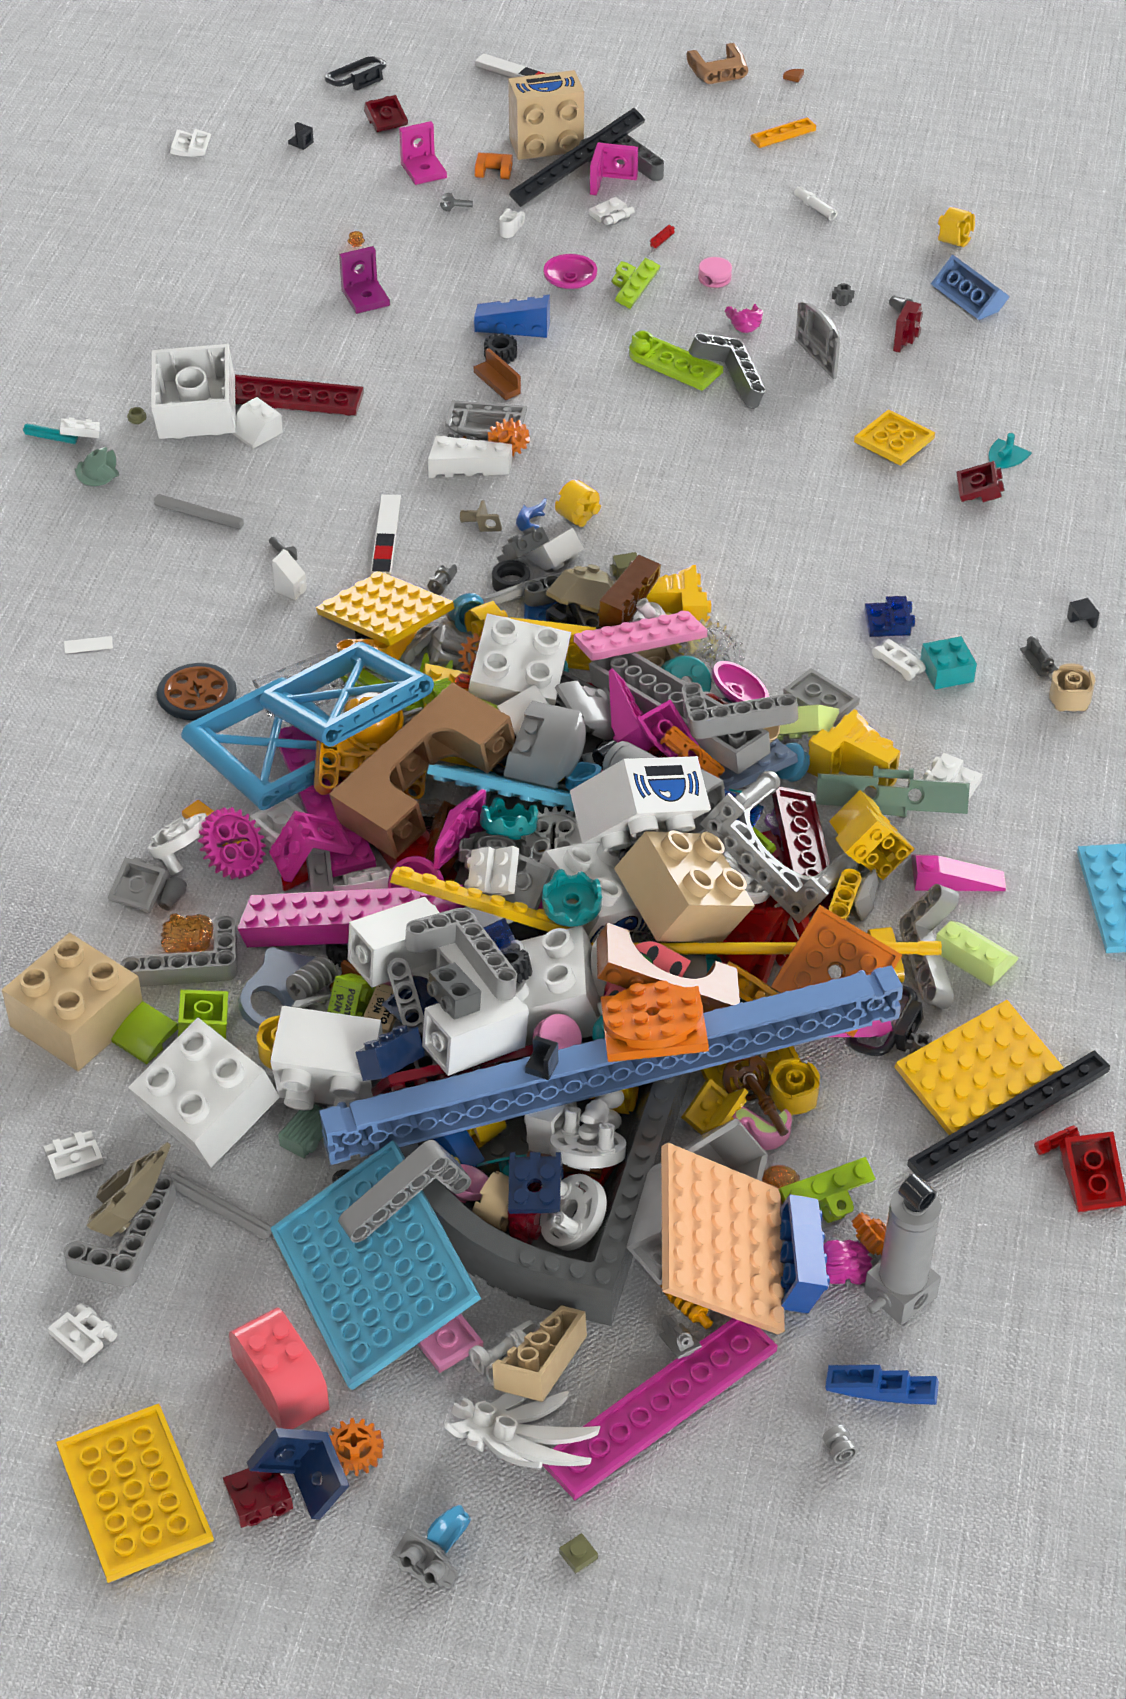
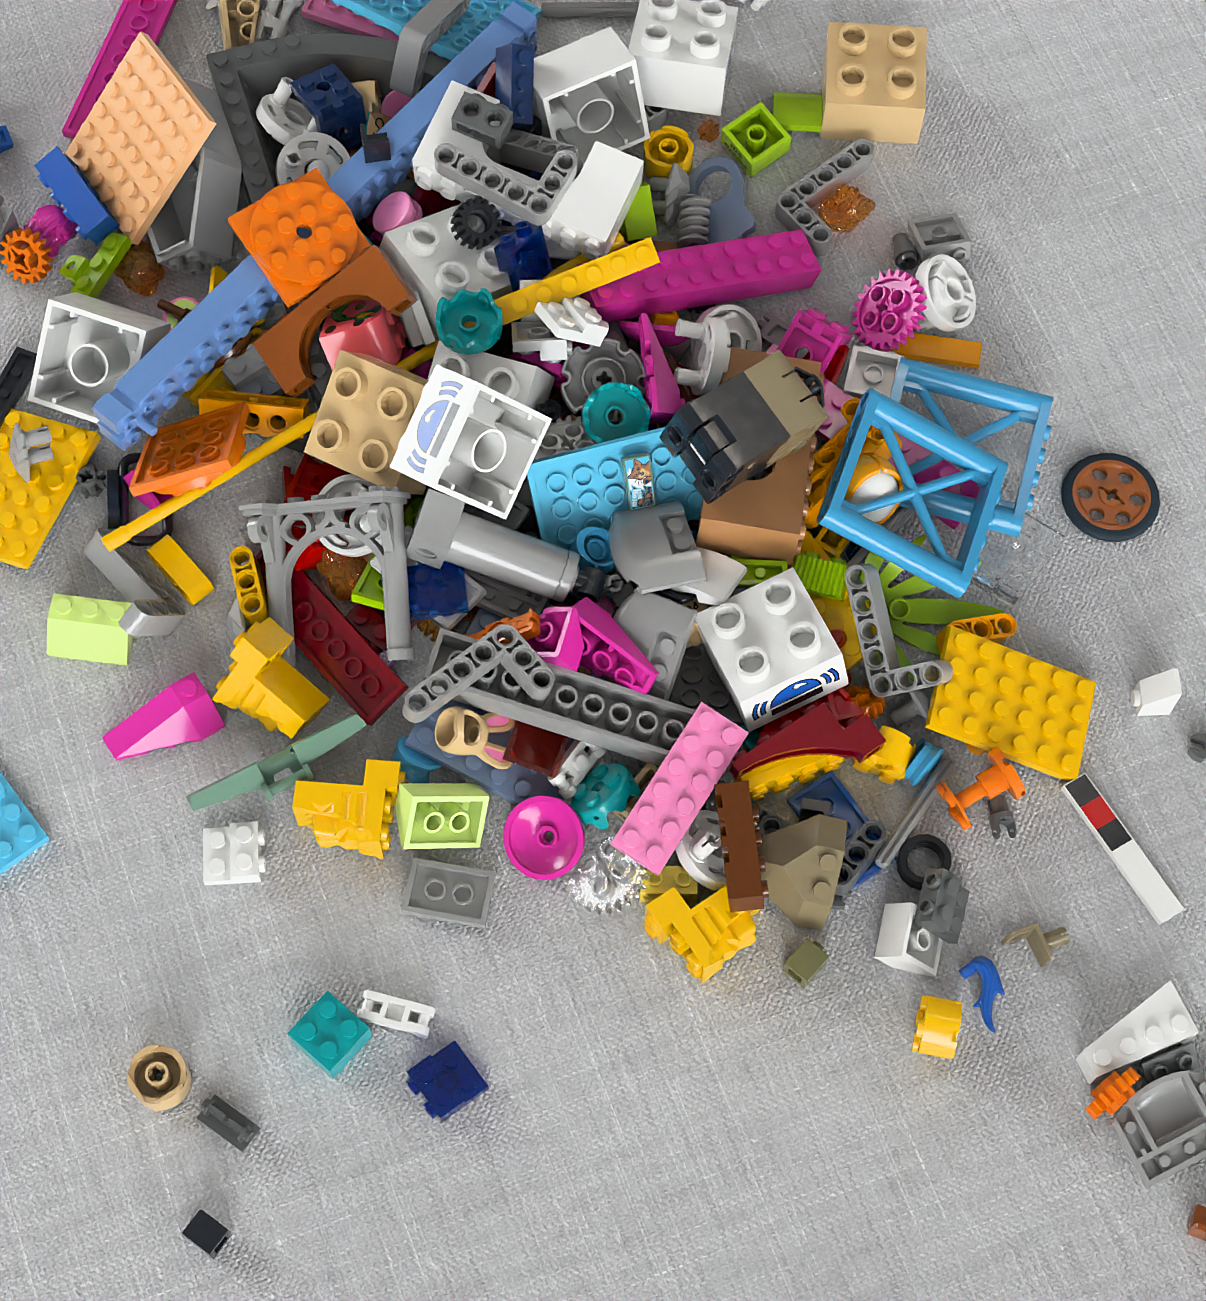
camera: 145 degrees right, 20 degrees up
(407, 831) = (709, 354): none -> white piece
(438, 576) = (989, 783): none -> orange piece
(438, 723) = (746, 424): none -> black piece
(444, 630) = (884, 640): none -> light grey beam
(509, 605) = (812, 734): none -> dark red arch
(526, 779) = (638, 481): none -> tile
(865, 1082) = (87, 351): none -> white brick
(961, 1054) = (22, 456): none -> light grey connector

